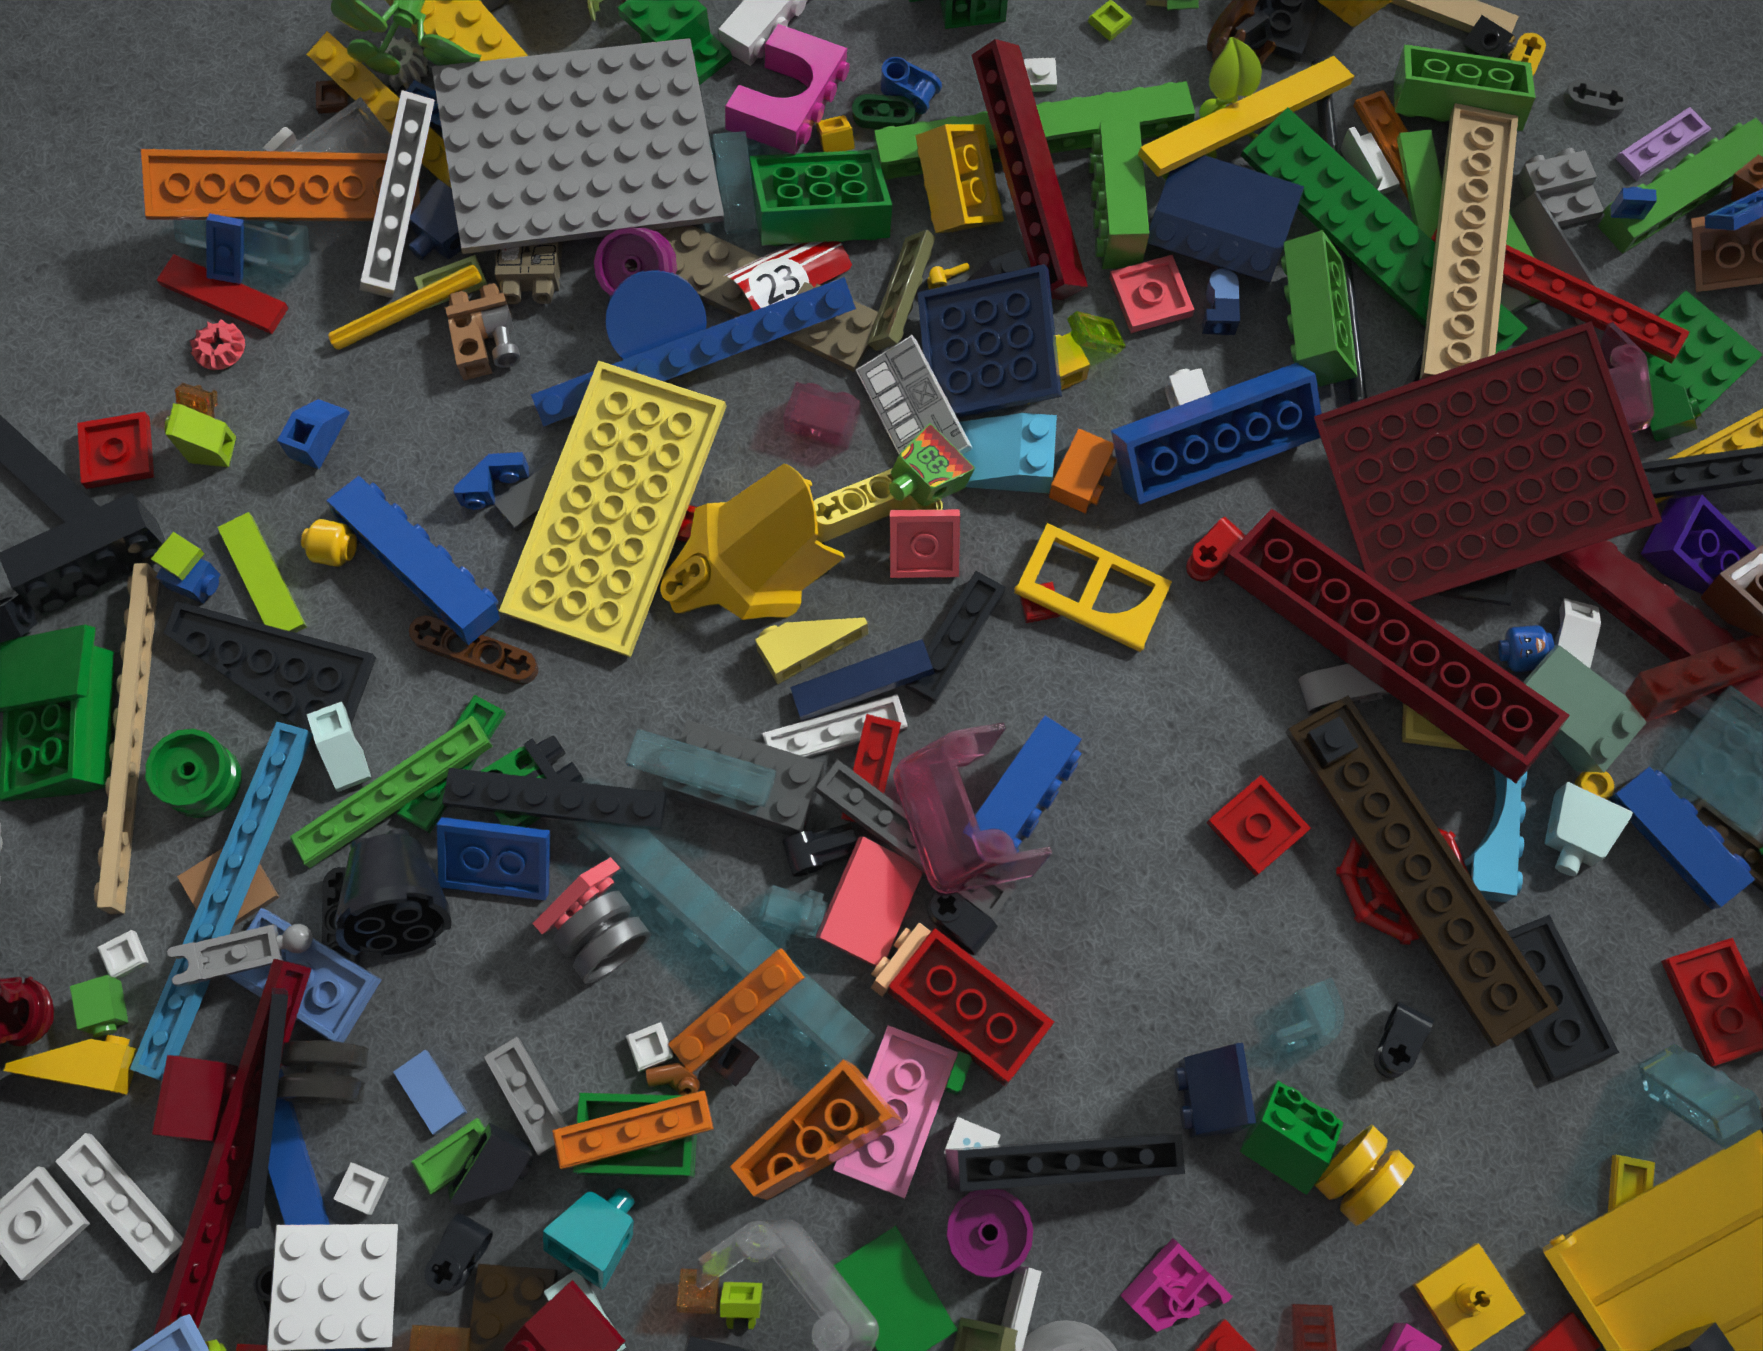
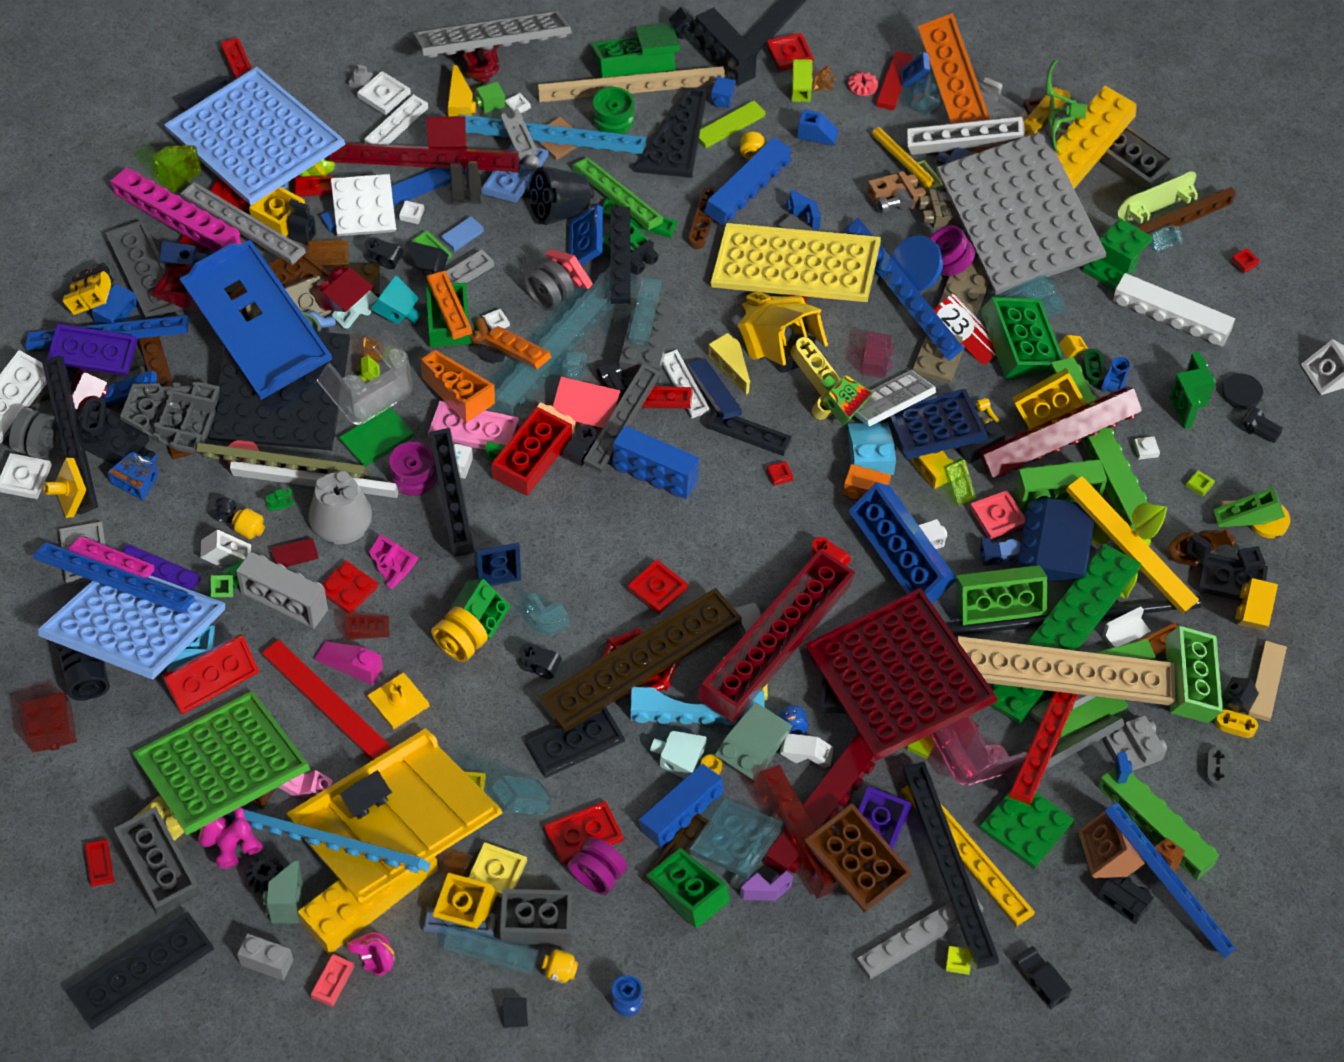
camera: 80 degrees right, 15 degrees down
(177, 556) = (729, 81): lime tile -> none
(266, 1108) = (443, 162): black tile -> none
(338, 747) = (632, 168): light aqua slope -> none
(789, 121) = (1069, 315): dark pink arch -> none
(901, 290) = (977, 388): olive plate -> none
(924, 543) = (801, 406): coral plate -> none
(943, 820) = (611, 431): clear pink windscreen -> none
(1126, 627) = (770, 515): yellow window -> none
(1332, 741) = (709, 606): black plate -> none
(1663, 143) = (1192, 811): lavender tile -> none
(1672, 409) = (979, 799): green slope -> none

